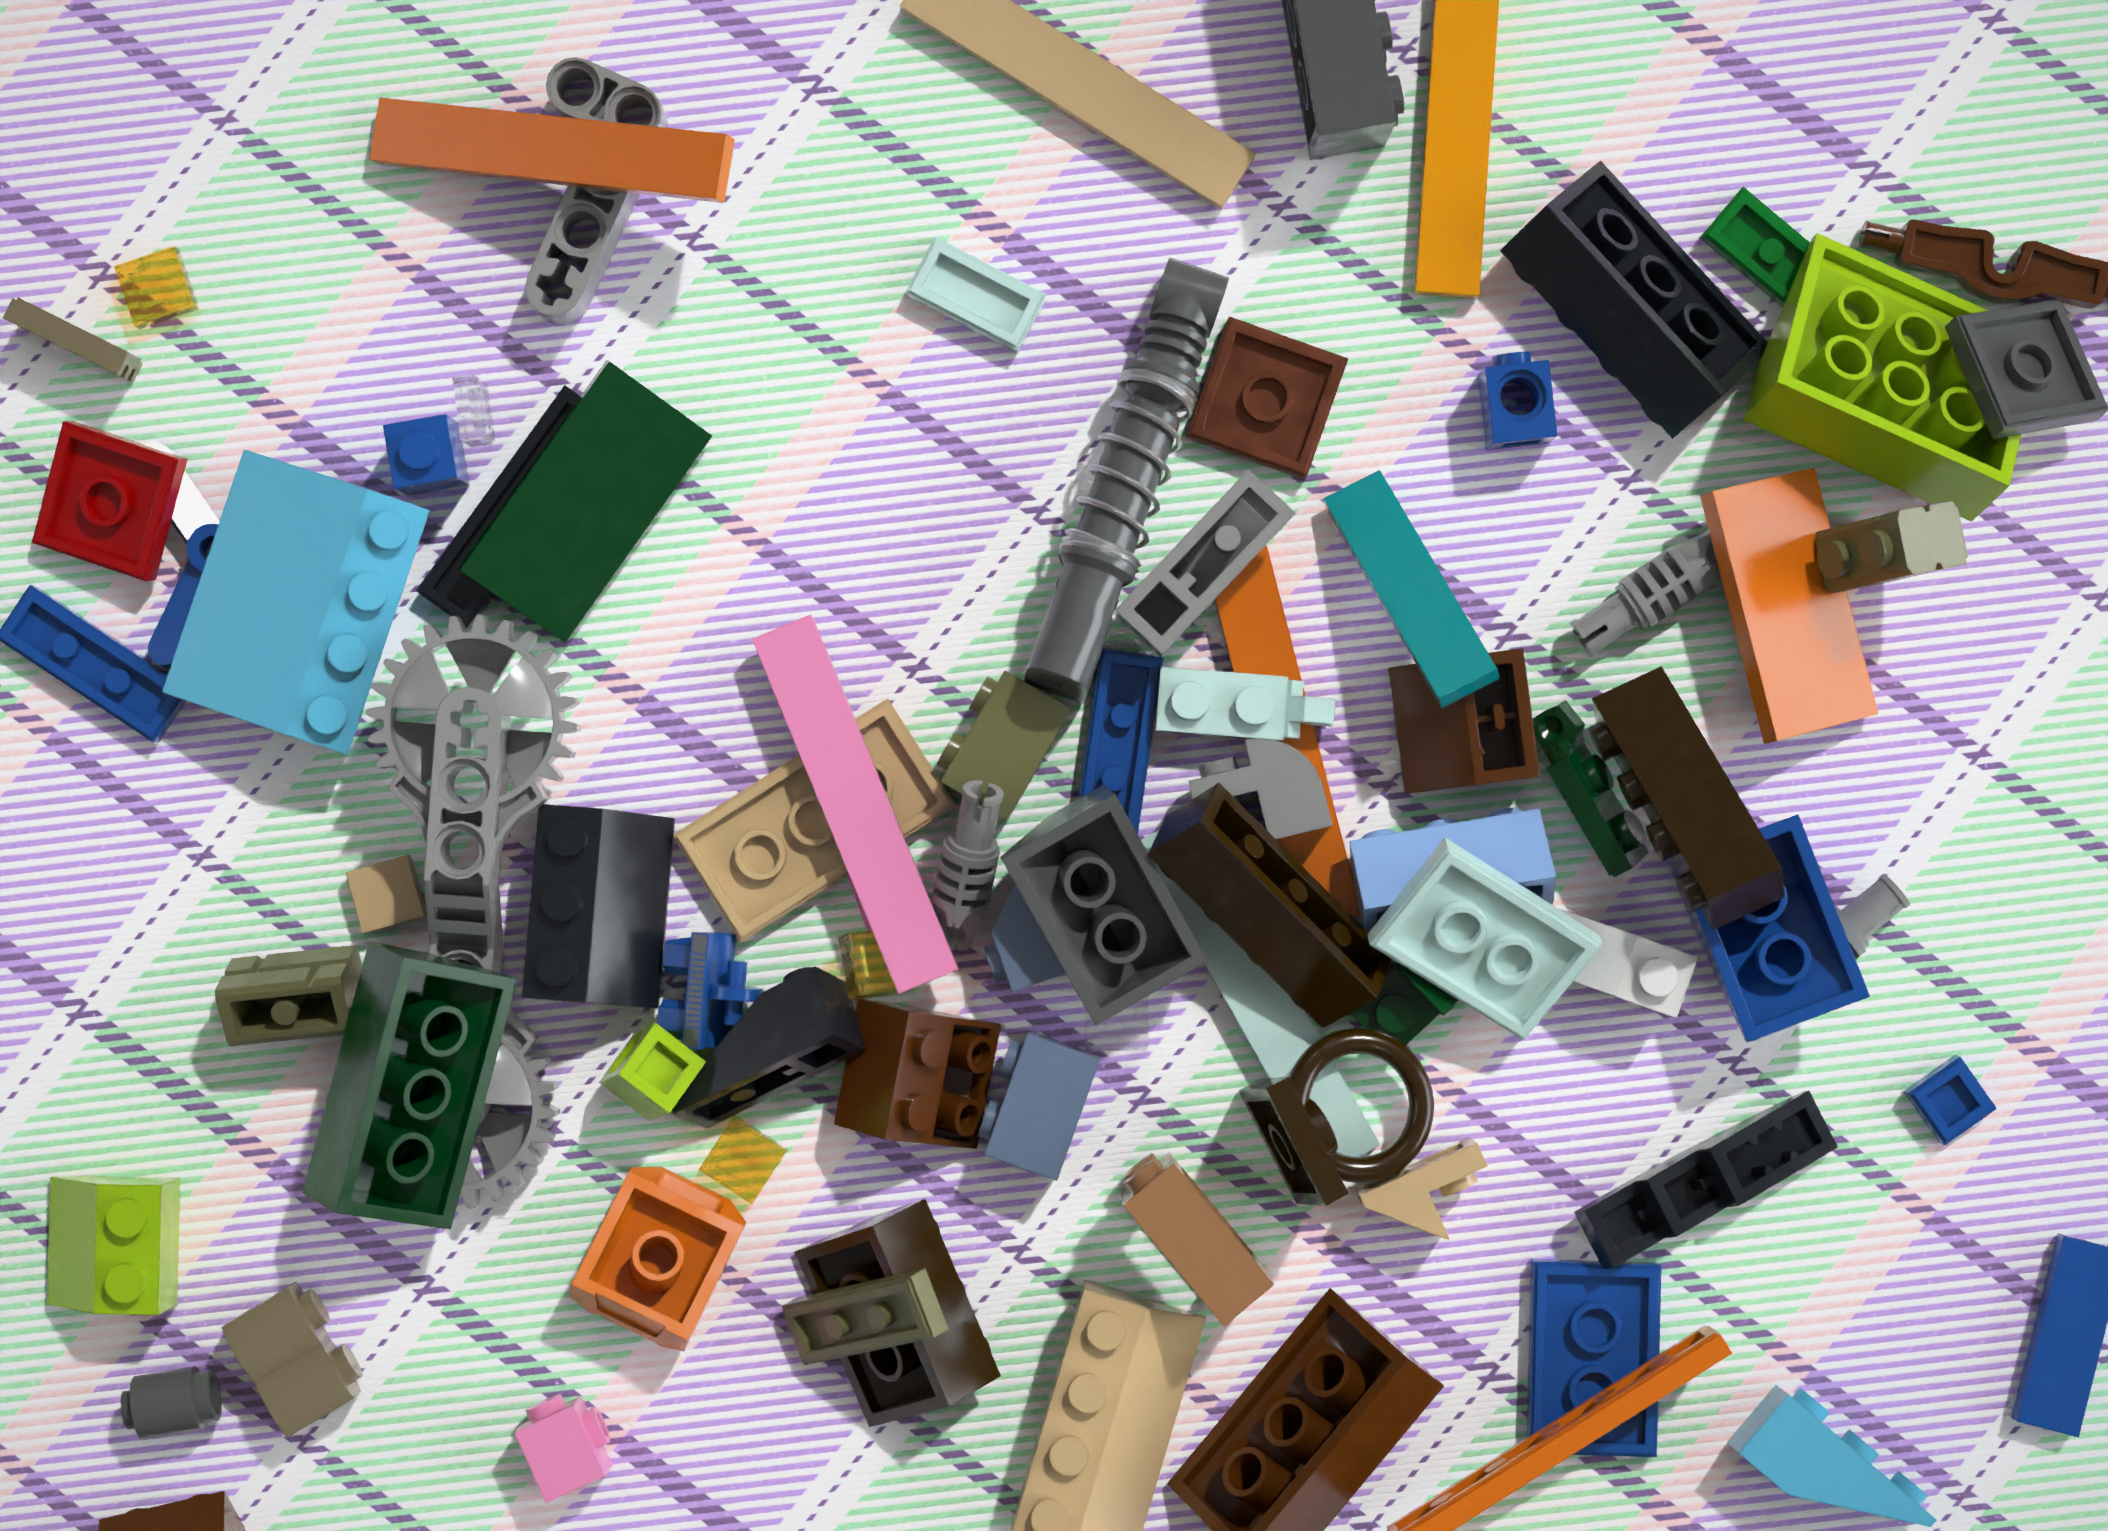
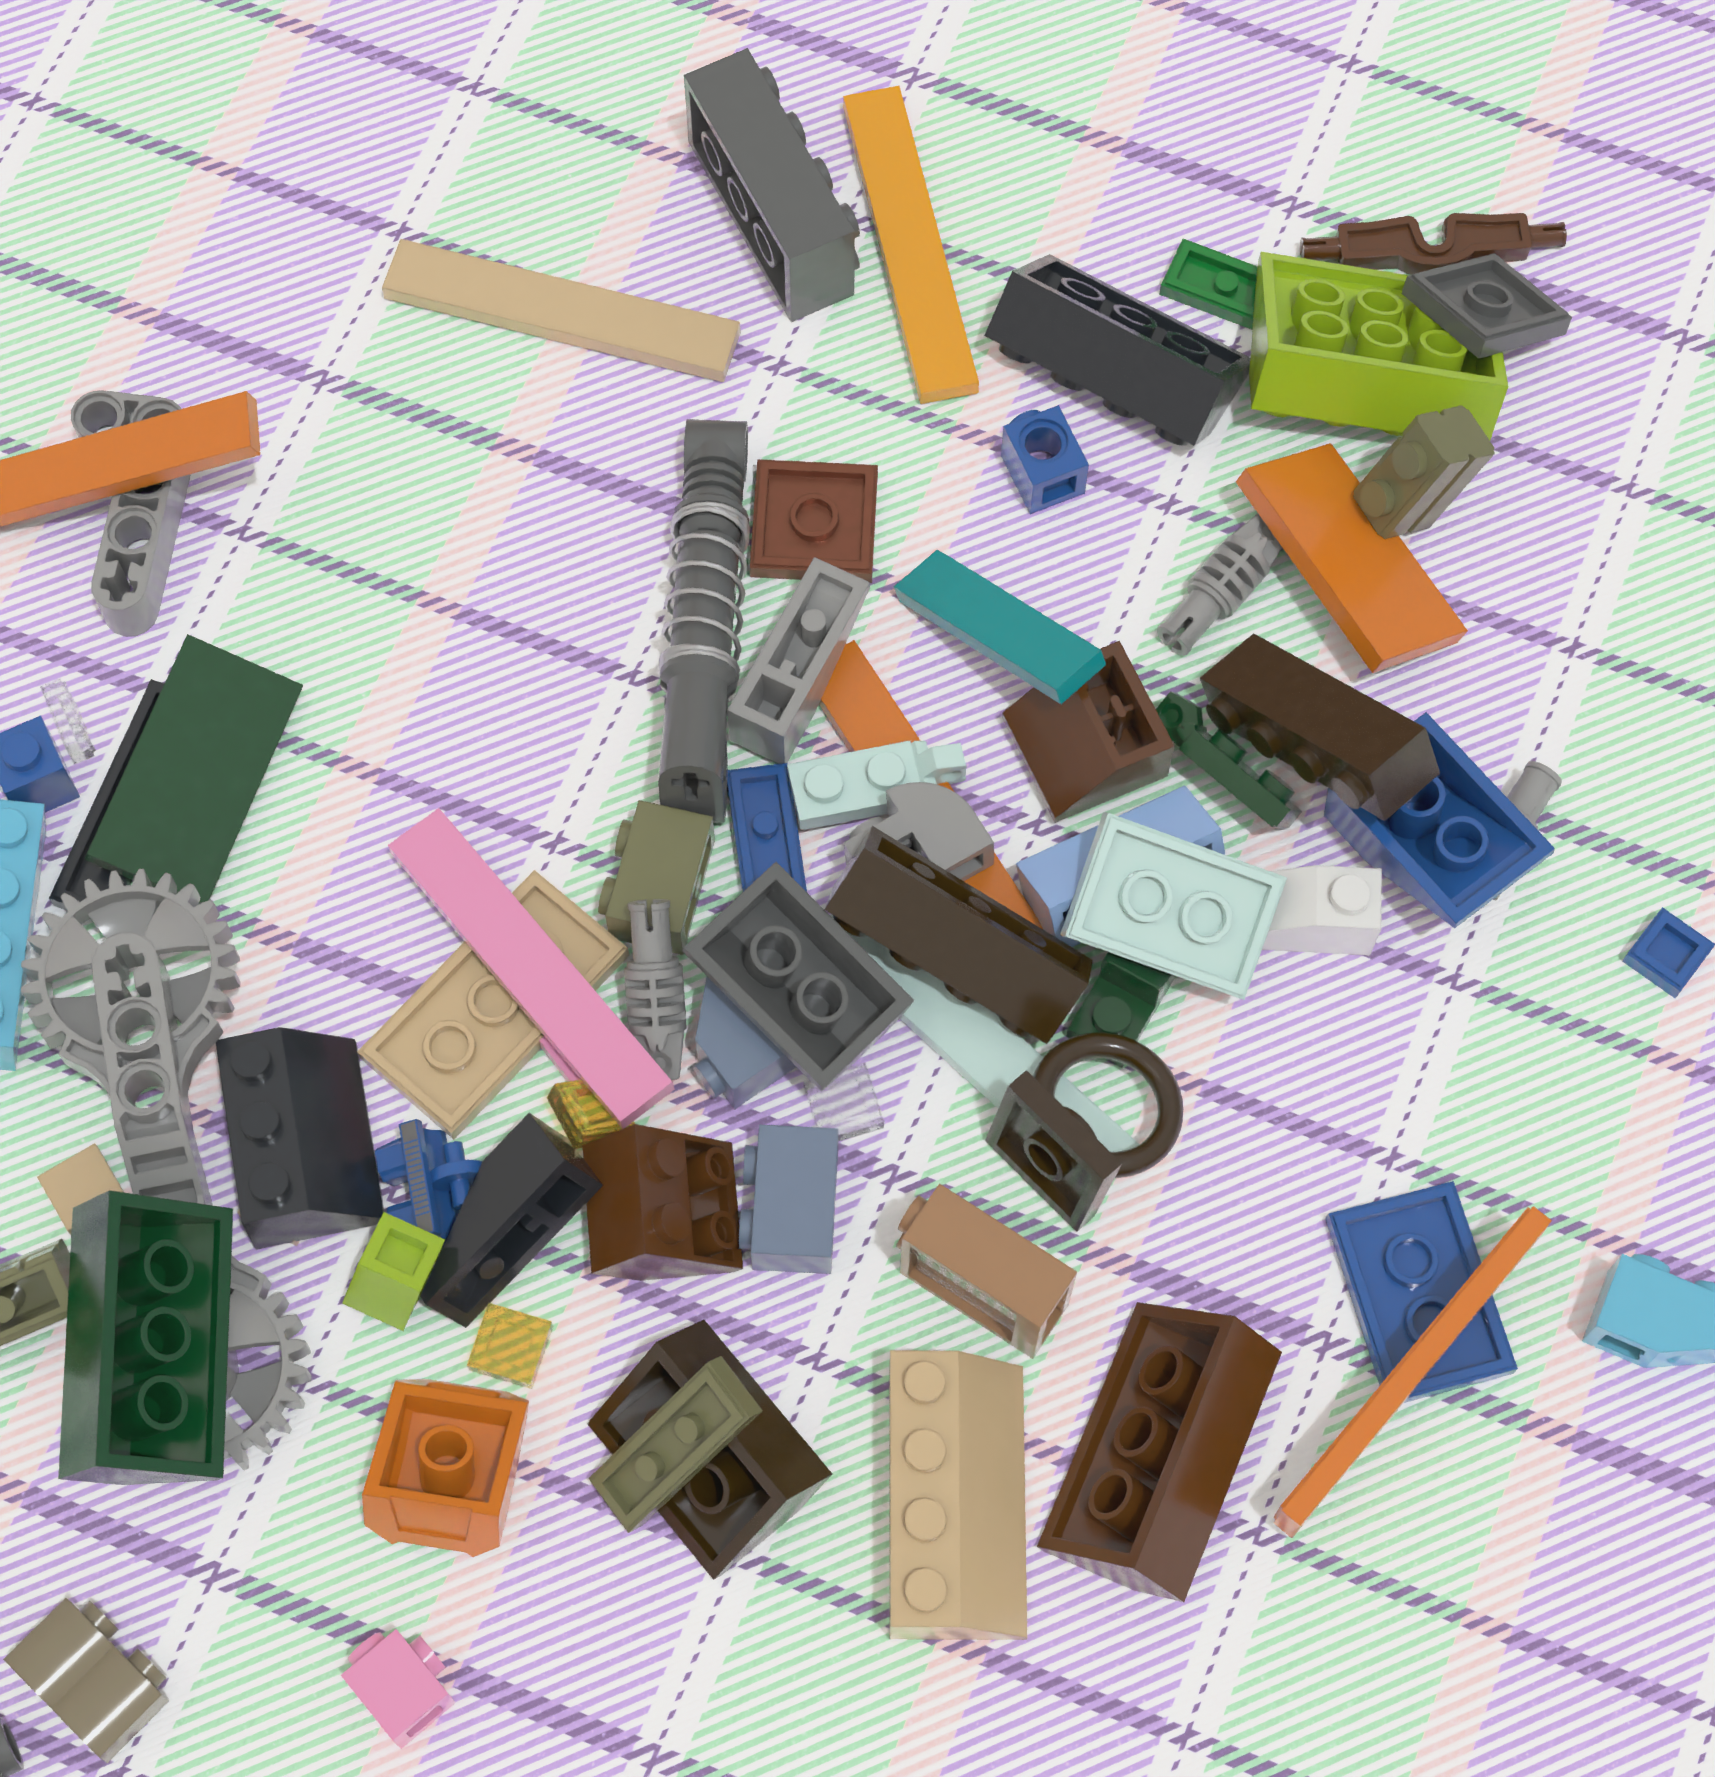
camera: 20 degrees left, 20 degrees down
(976, 294) = (519, 506): light aqua tile -> none
(1407, 1192) = (1183, 1180): tan slope -> none
(1706, 1179) = (1464, 1088): black slope -> none

